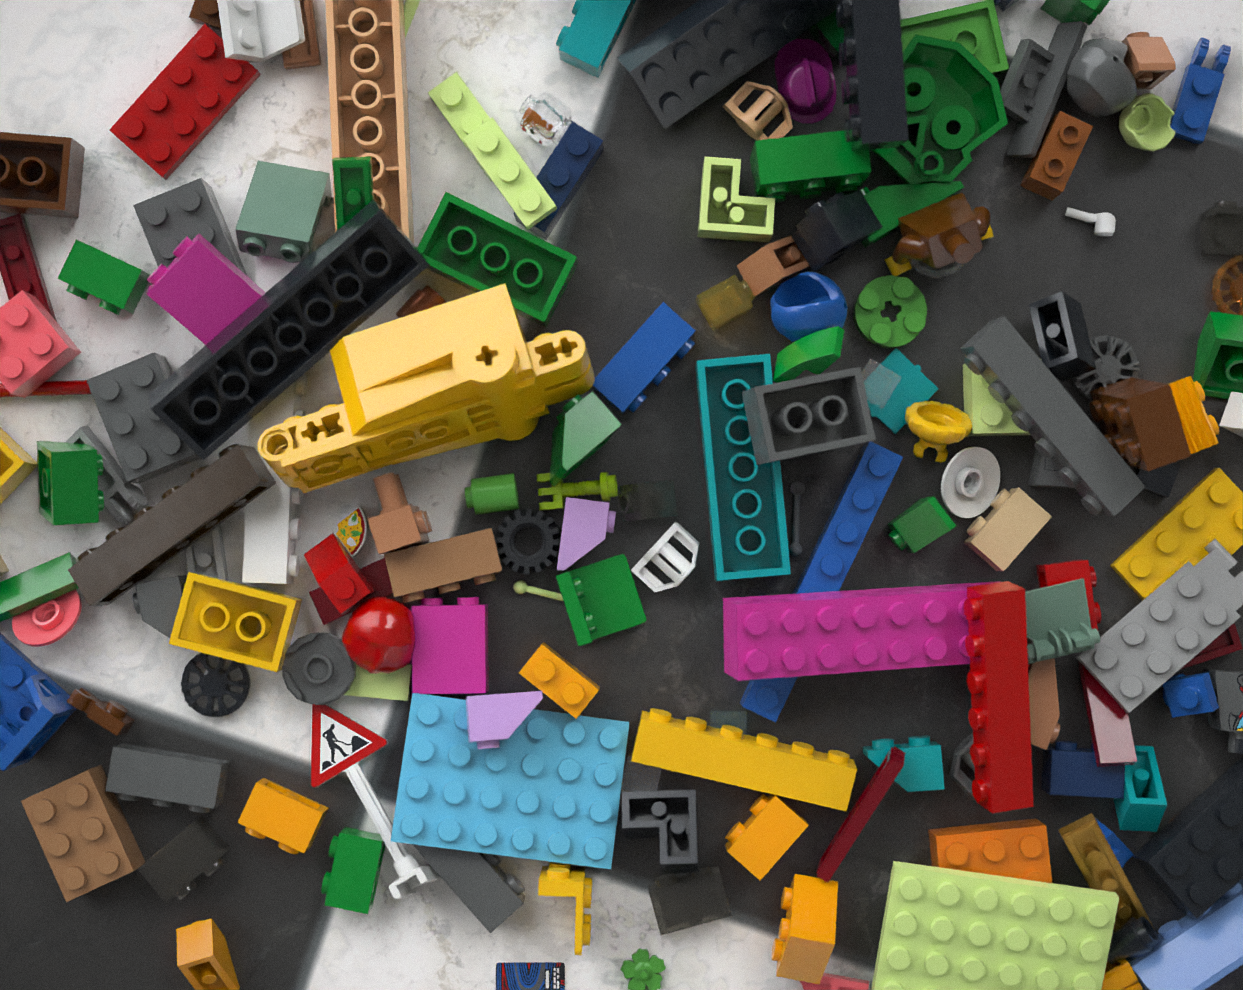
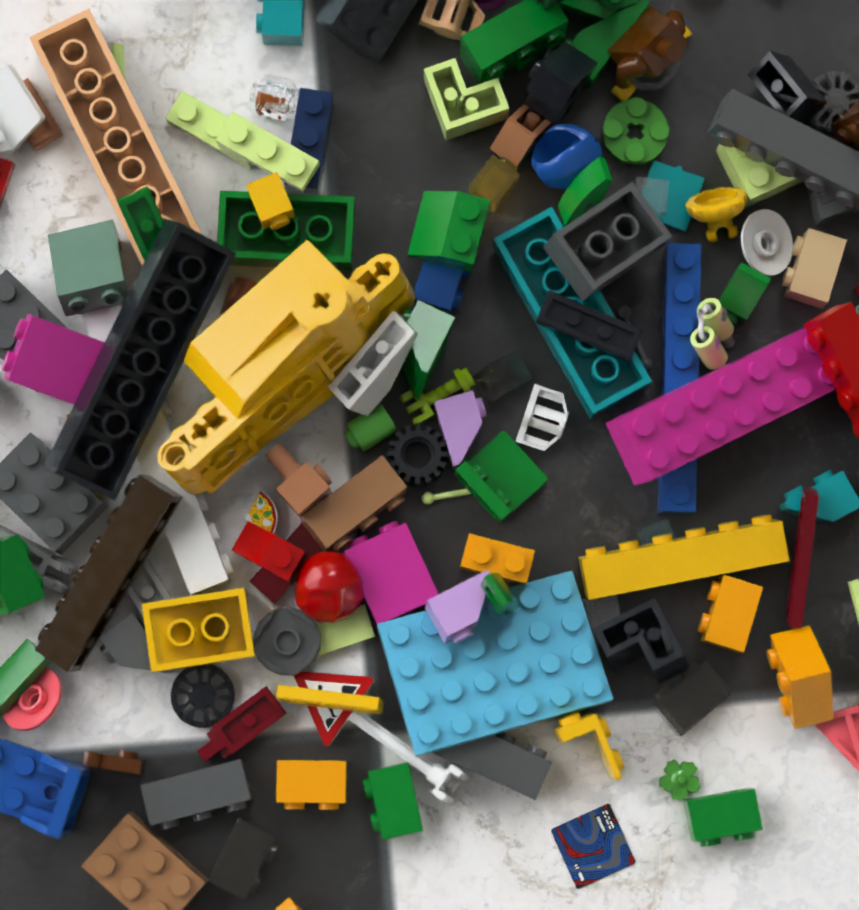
camera: 30 degrees left, 5 degrees down
(241, 730) = (242, 725): none -> dark red hinge
(333, 746) = (330, 699): none -> yellow tile
(489, 226) = (271, 201): none -> yellow brick
(519, 439) = (375, 366): none -> white slope
(542, 720) = (499, 593): none -> green slope
(657, 331) = (449, 229): none -> green slope
(752, 492) = (588, 326): none -> black tile
(863, 557) = (712, 329): none -> piece

